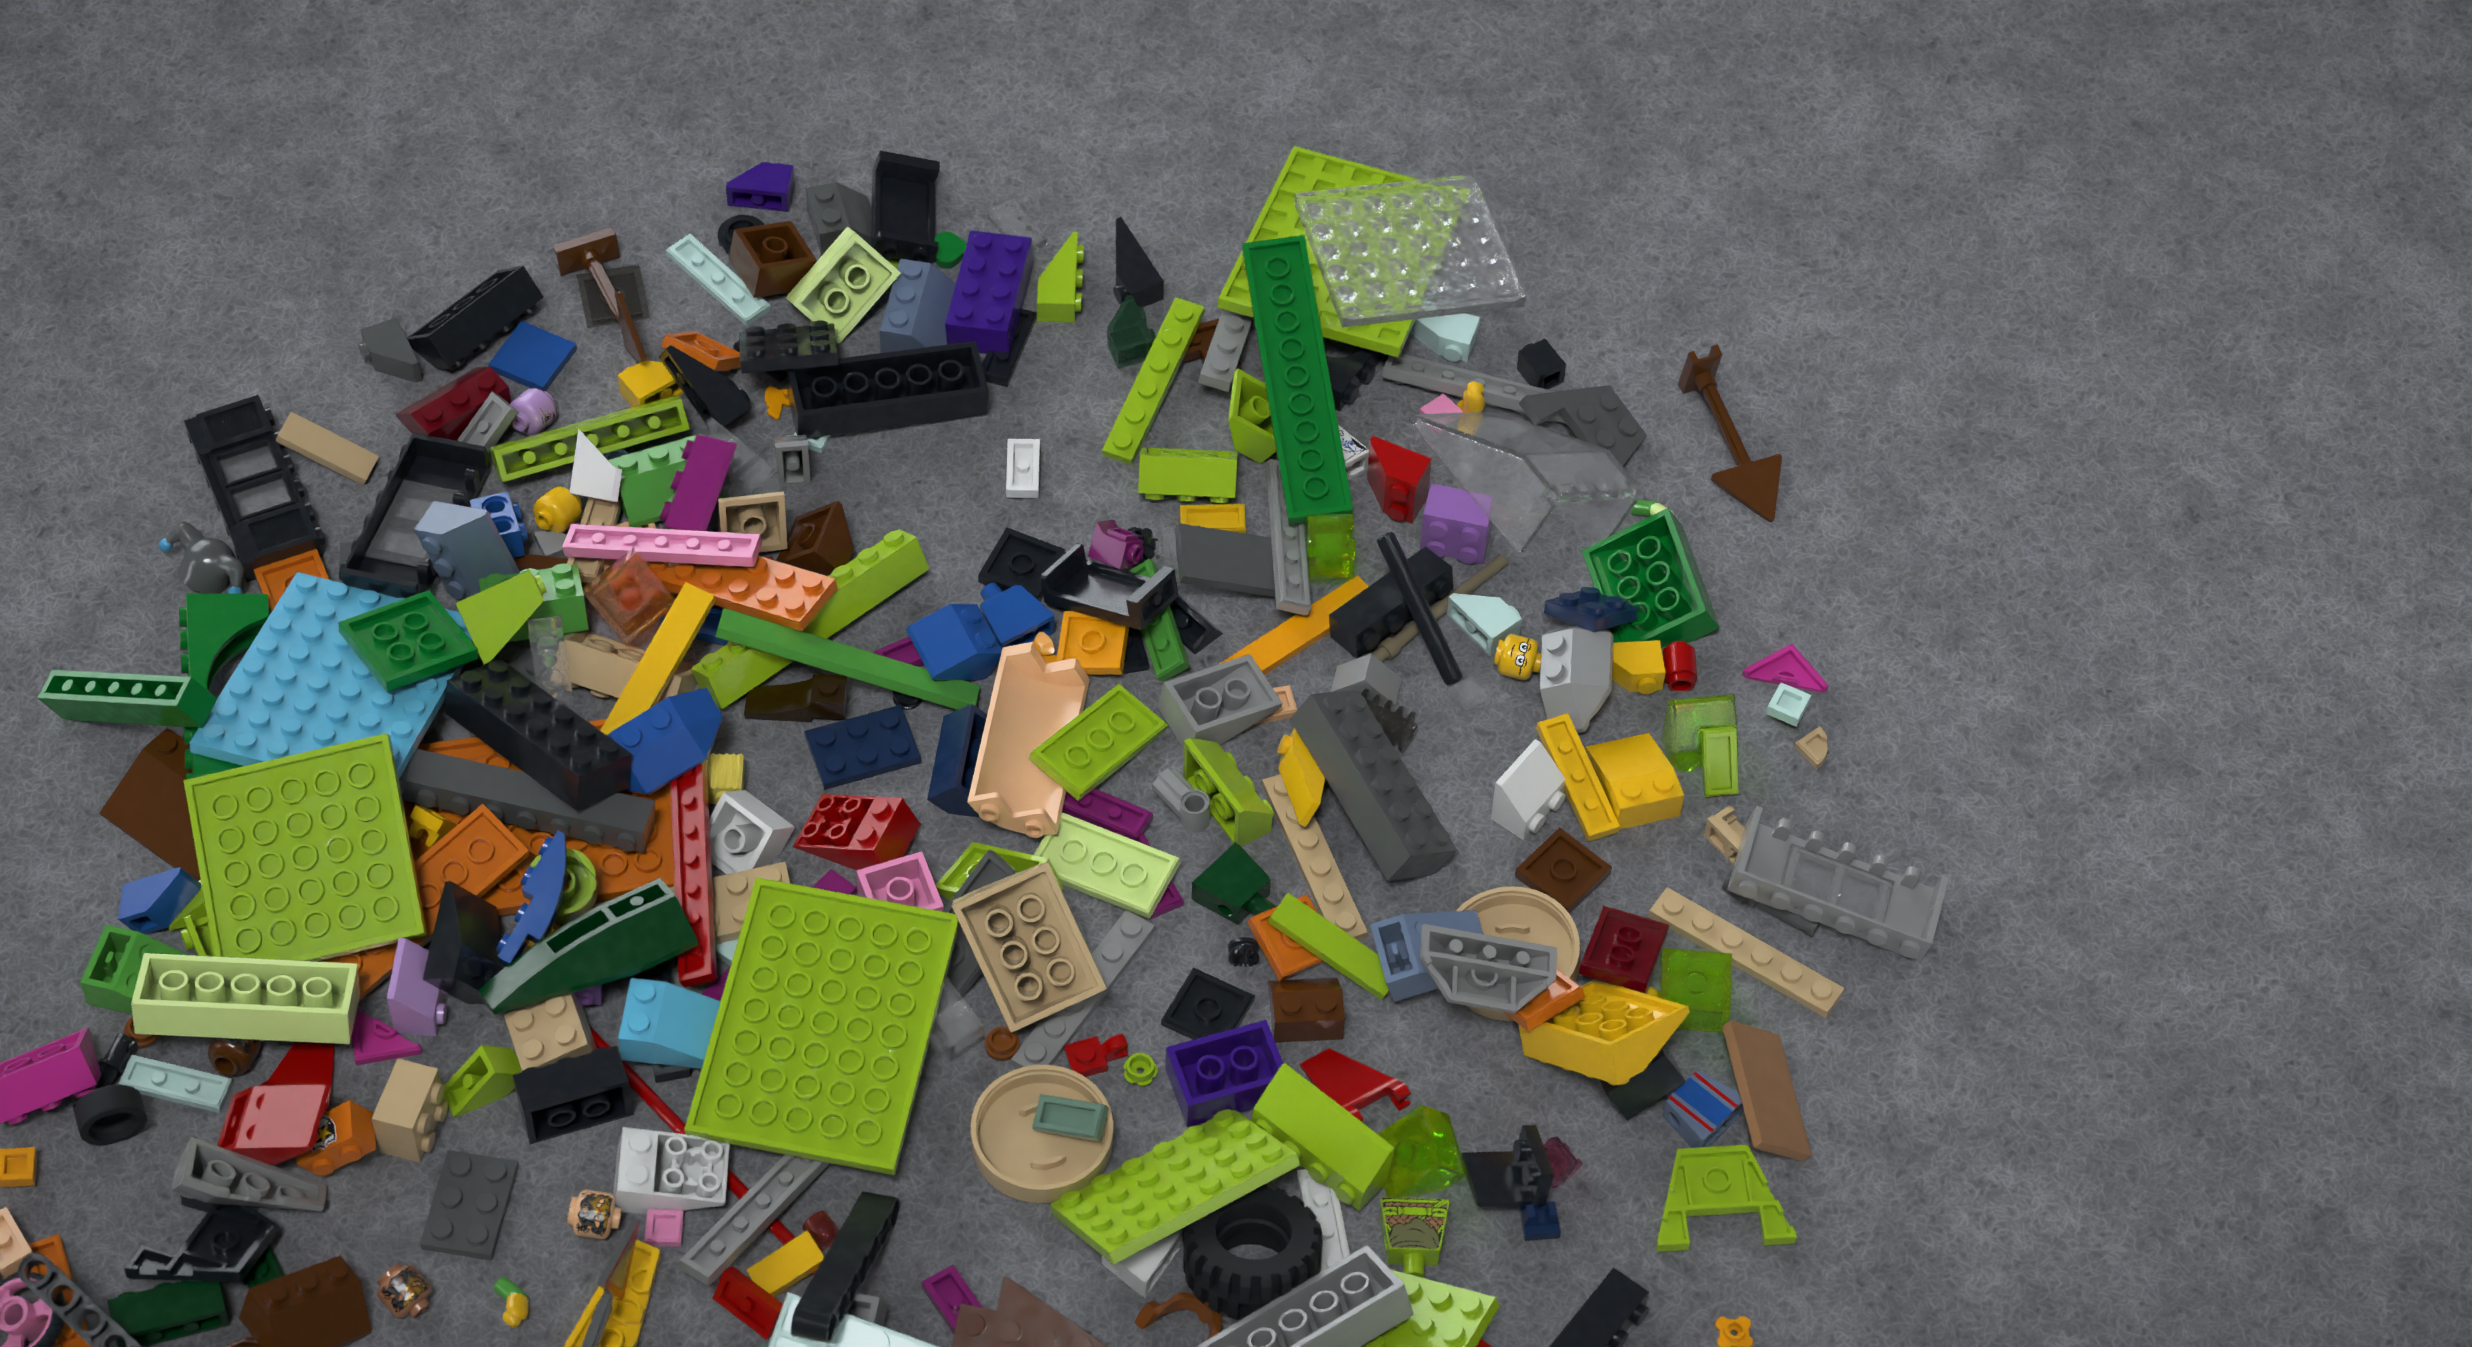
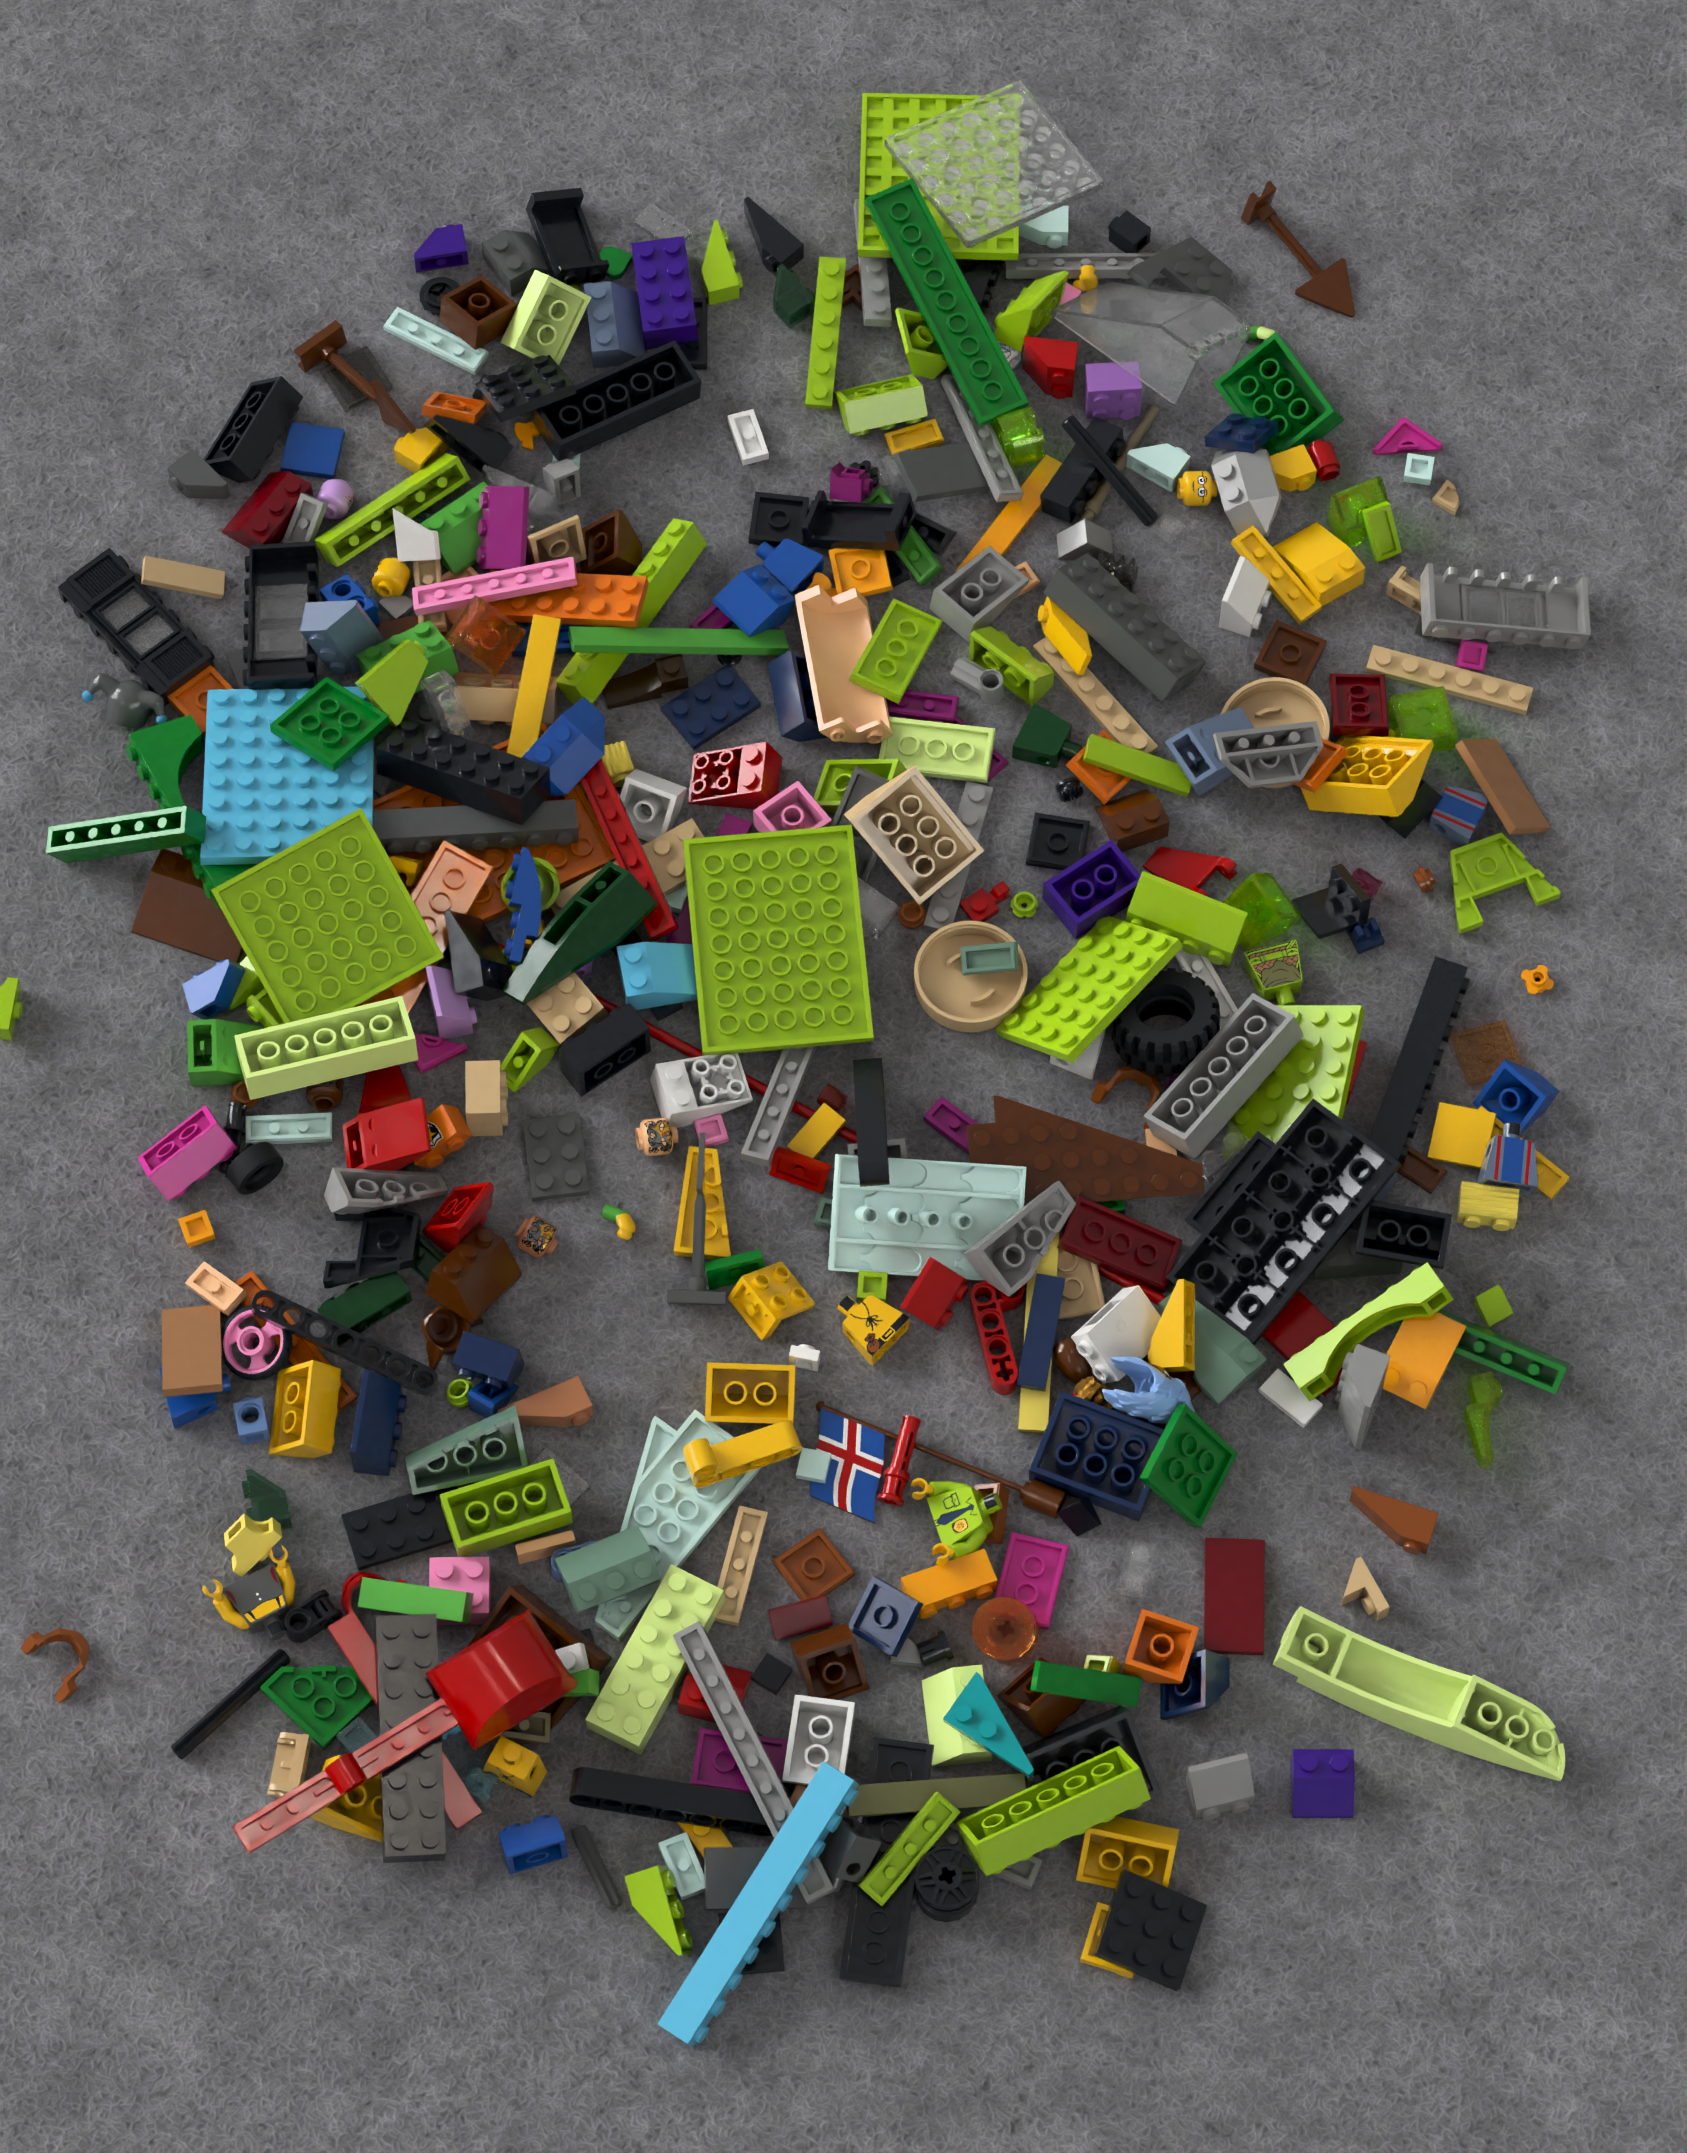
camera: 15 degrees left, 10 degrees up
(322, 1238) = (459, 1215): none -> red slope
(1390, 414) = (1030, 311): none -> lime slope
(1634, 1174) = (1424, 879): none -> dark orange plate
(1782, 930) = (1472, 654): none -> dark pink tile

